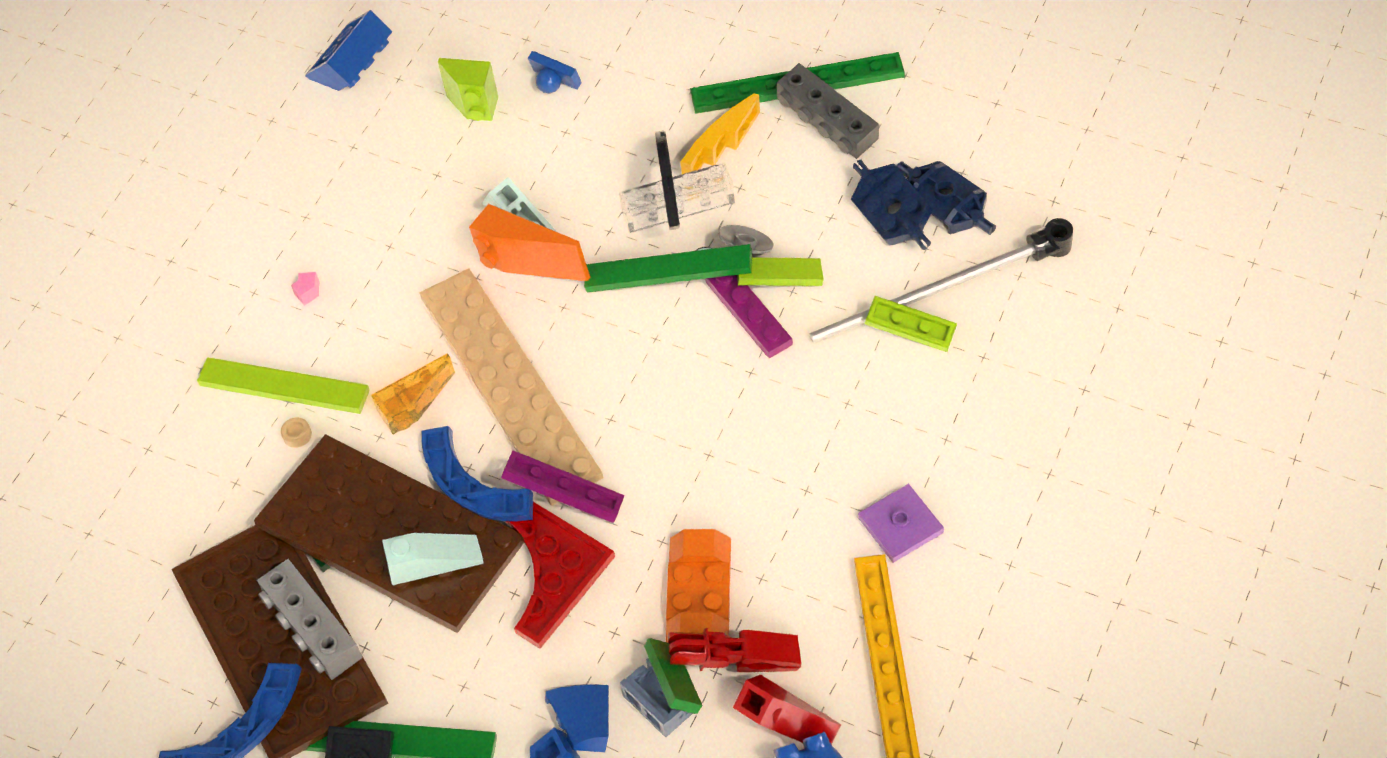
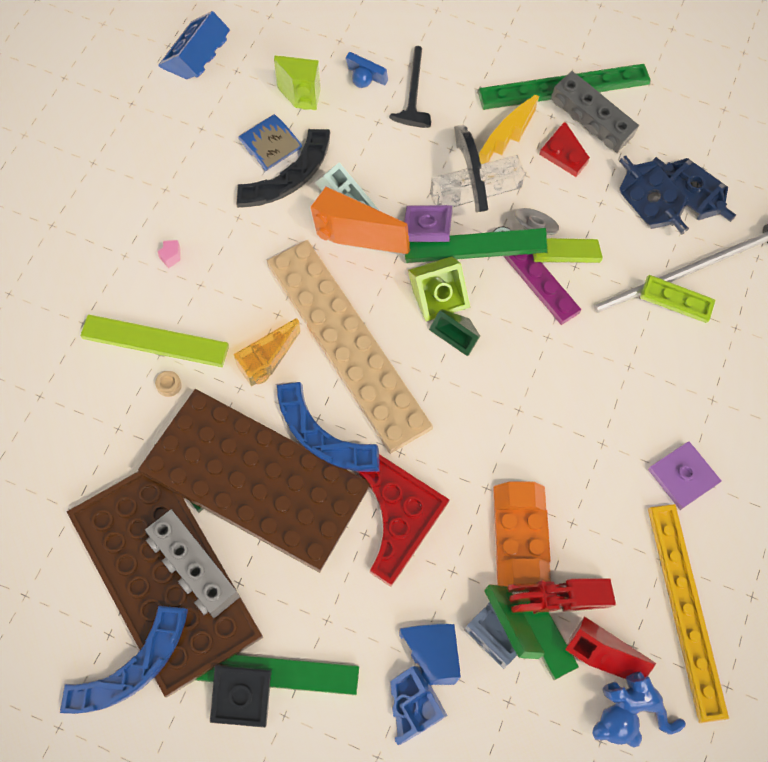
camera: 10 degrees left, 10 degrees up
(429, 554) = (295, 505): light aqua slope -> none
(433, 159) = (270, 142): none -> slope
(456, 199) = (292, 177): none -> black tile
(562, 486) = (403, 441): magenta plate -> none
(605, 123) = (411, 115): none -> black piece
(614, 244) = (429, 222): none -> medium lavender plate
(622, 319) = (439, 287): none -> lime slope
(638, 366) = (456, 331): none -> dark green slope
(718, 705) = (556, 658): none -> green tile
(791, 158) = (565, 151): none -> red wing

